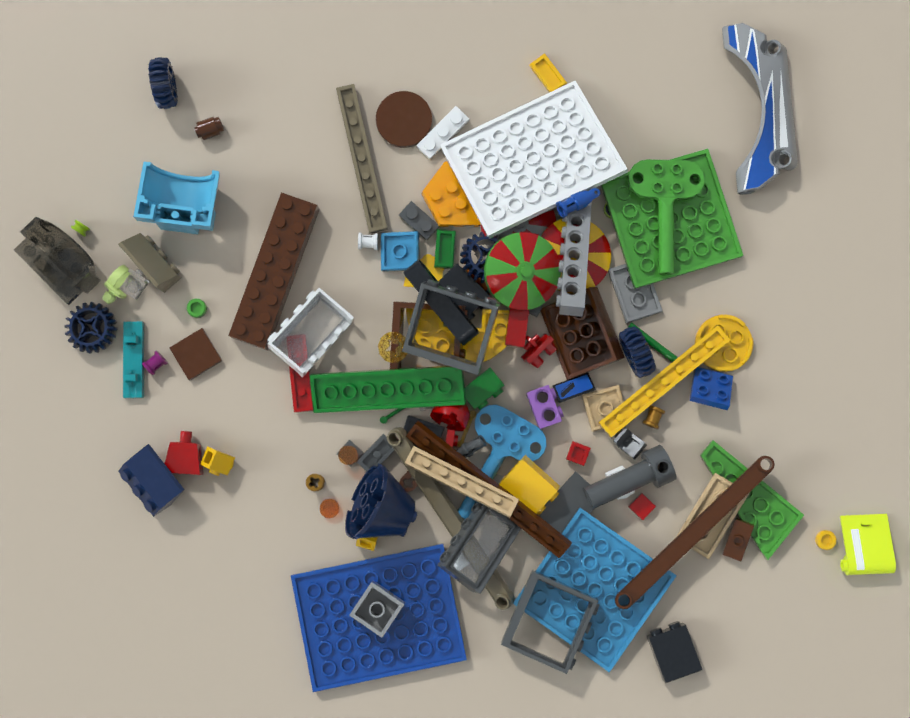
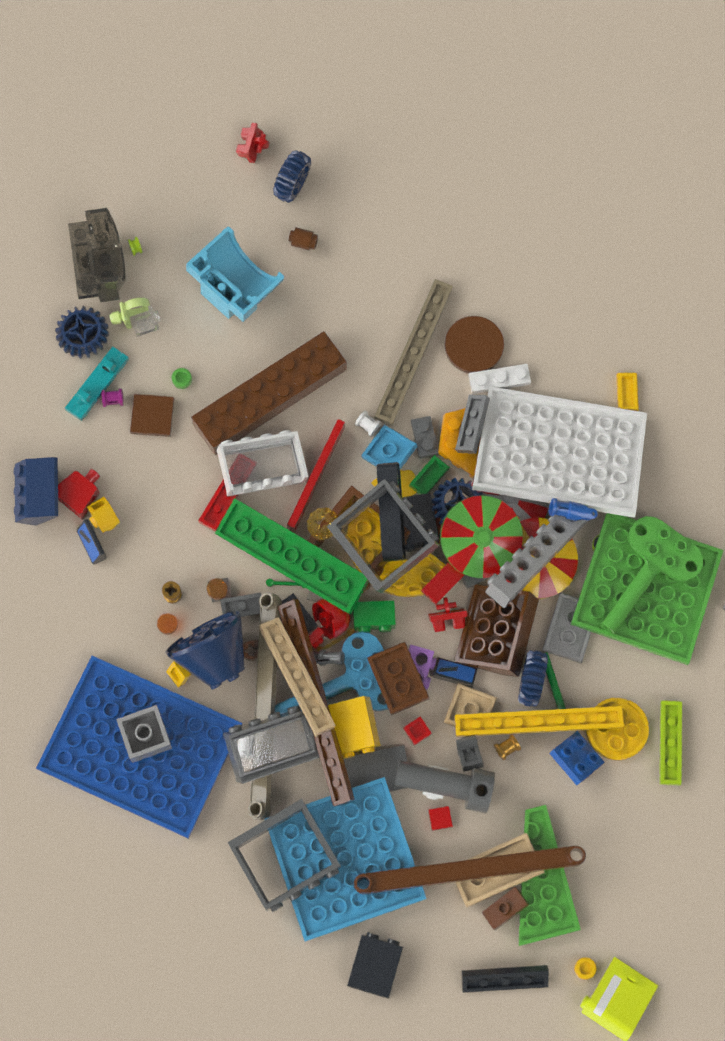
camera: 30 degrees right, 10 degrees down
(112, 76) = (254, 144): none -> red hips
(150, 261) = (173, 313): dark tan slope -> none
(223, 488) = (91, 542): none -> slope
(358, 311) = (316, 475): none -> red tile
(450, 185) = (472, 424): none -> plate
(537, 425) = (398, 678): none -> reddish brown tile
(771, 326) = (670, 743): none -> lime plate
(774, 591) = (505, 978): none -> black plate

